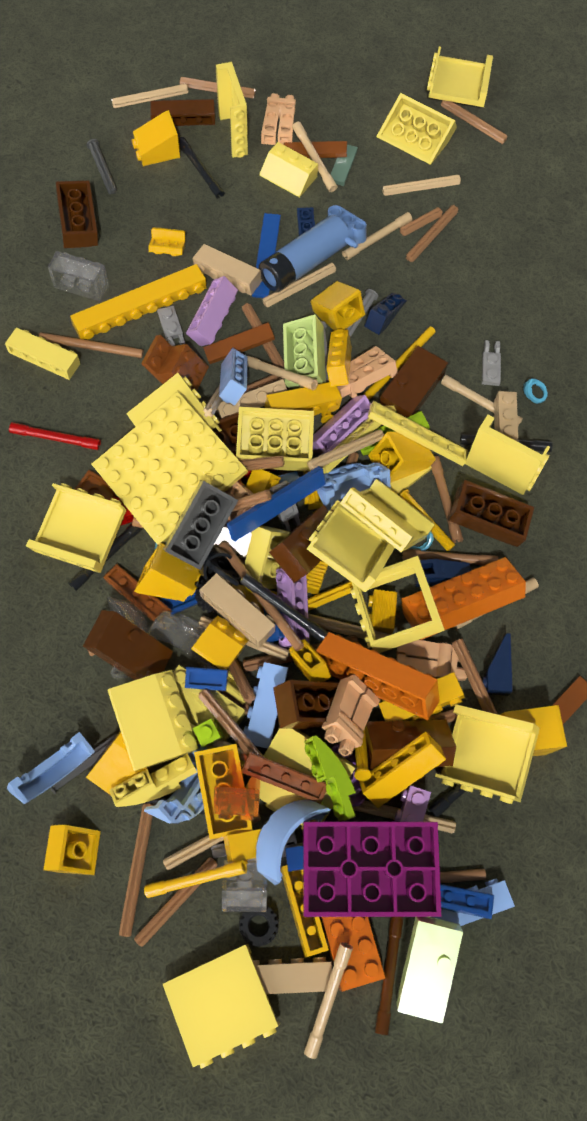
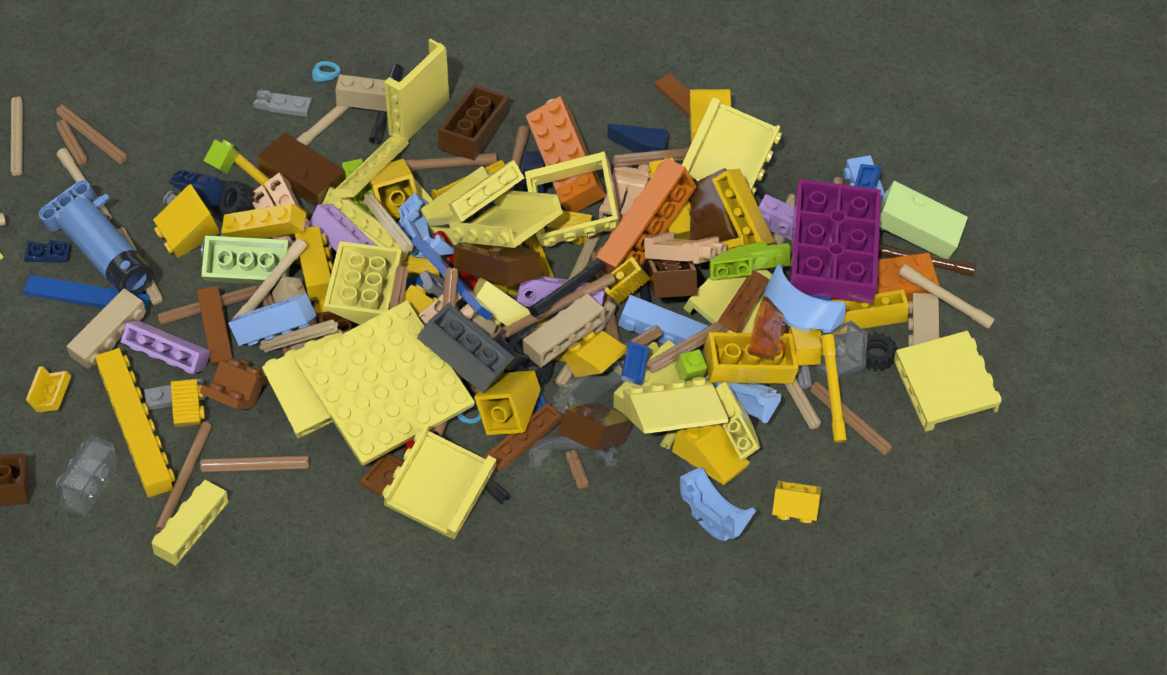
camera: 80 degrees left, 15 degrees down
(25, 430) = (294, 544): red piece -> none
(105, 392) = (254, 463): none -> medium nougat axle
(136, 873) = (819, 449): medium nougat axle -> none
(148, 330) = (186, 403): none -> yellow brick
(370, 338) = (236, 198): none -> black tyre
(418, 322) = (221, 155): none -> lime brick

